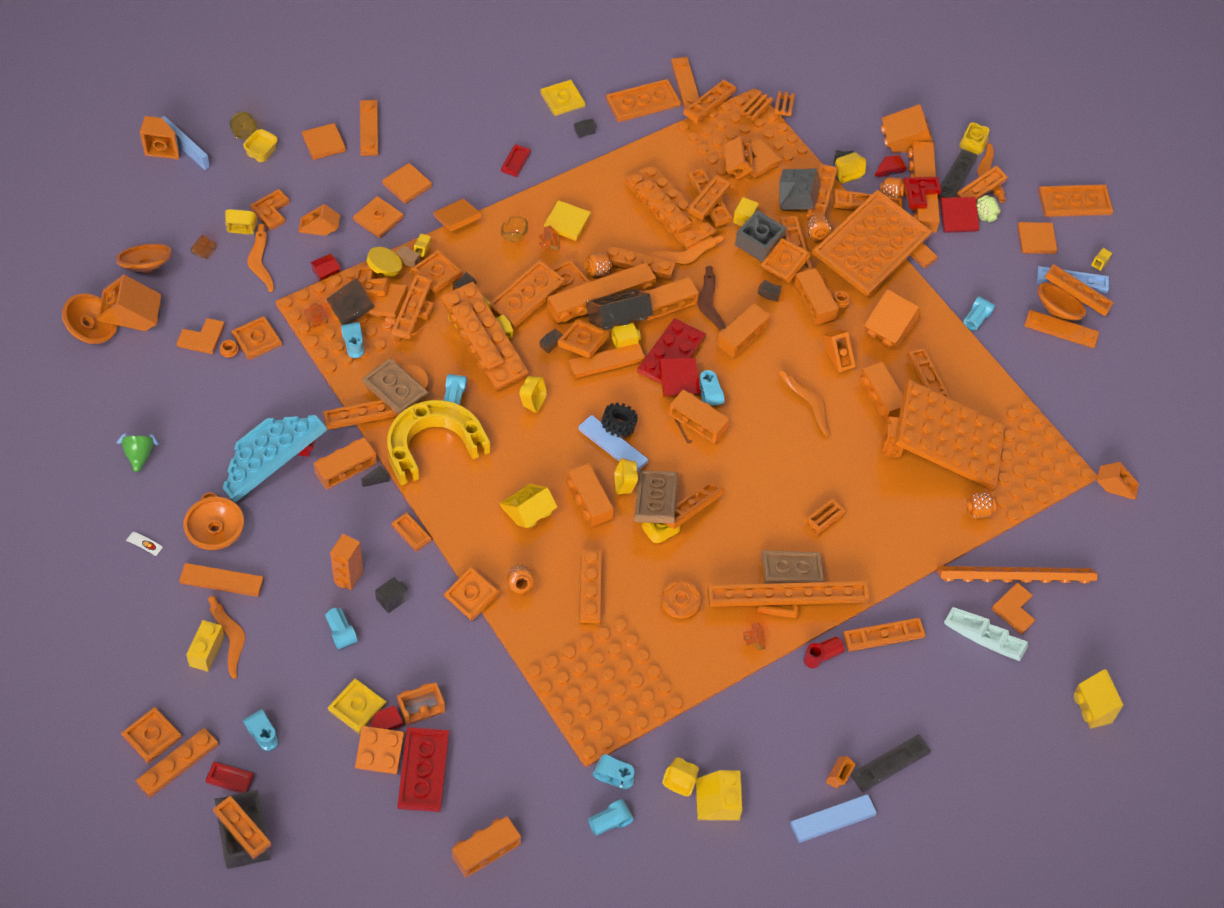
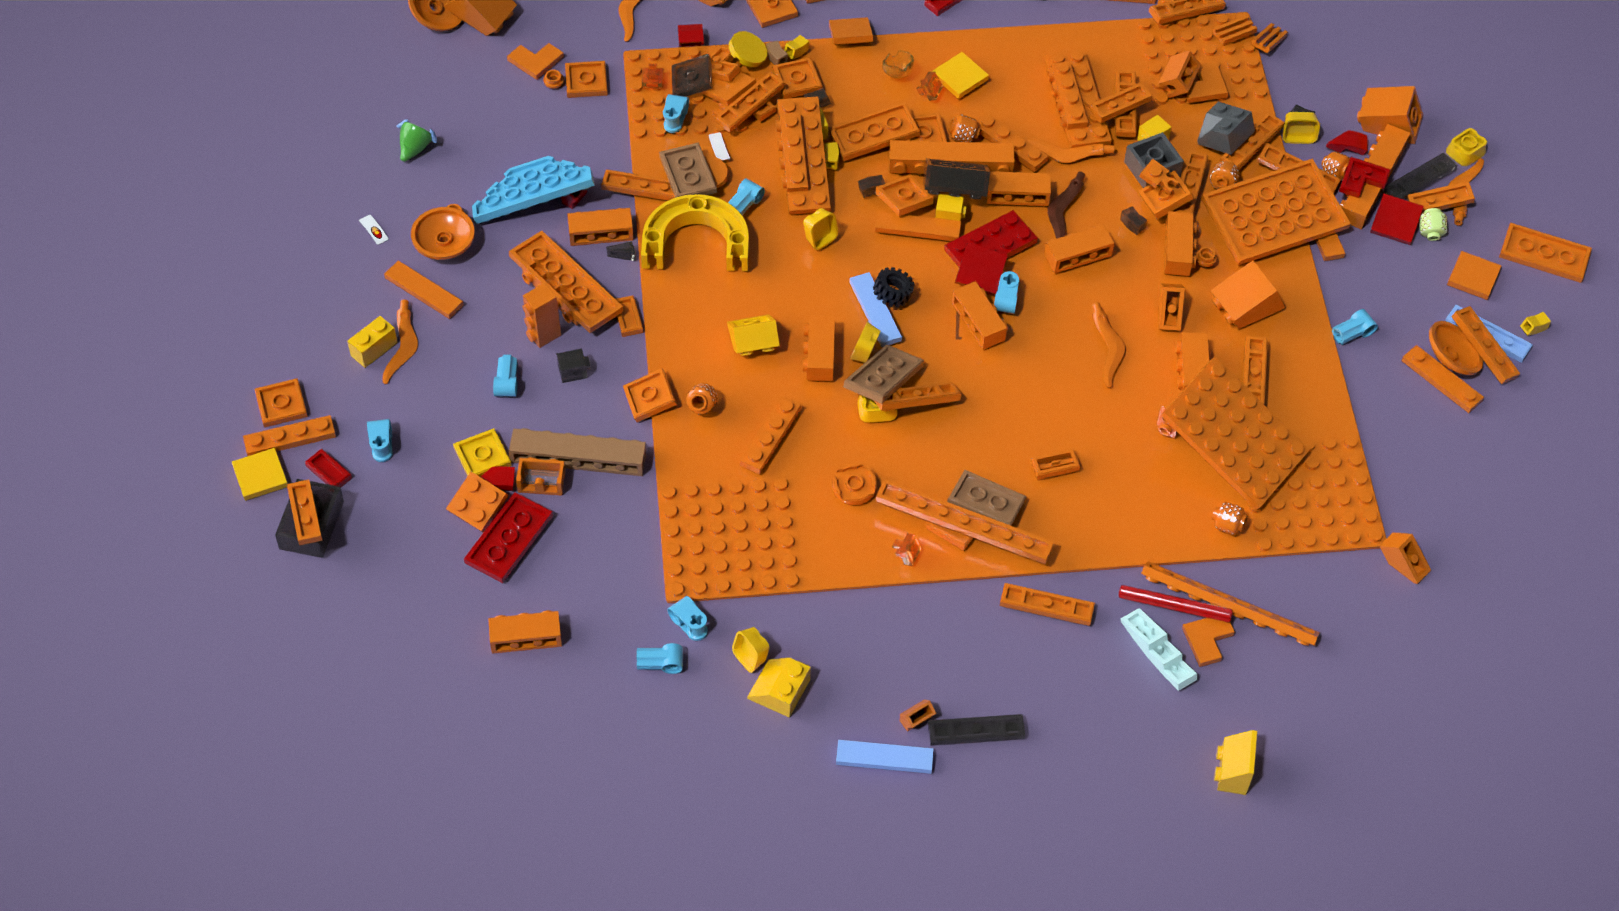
camera: 30 degrees right, 0 degrees up
(170, 808) = (259, 474): none -> yellow tile
(330, 518) = (577, 293): none -> orange plate
(404, 354) = (718, 146): none -> white sticker
(440, 668) = (580, 451): none -> medium nougat brick
(774, 248) = (1156, 175): none -> orange plate
(823, 651) = (972, 593): red piece -> none
(978, 591) = (1175, 603): none -> red axle

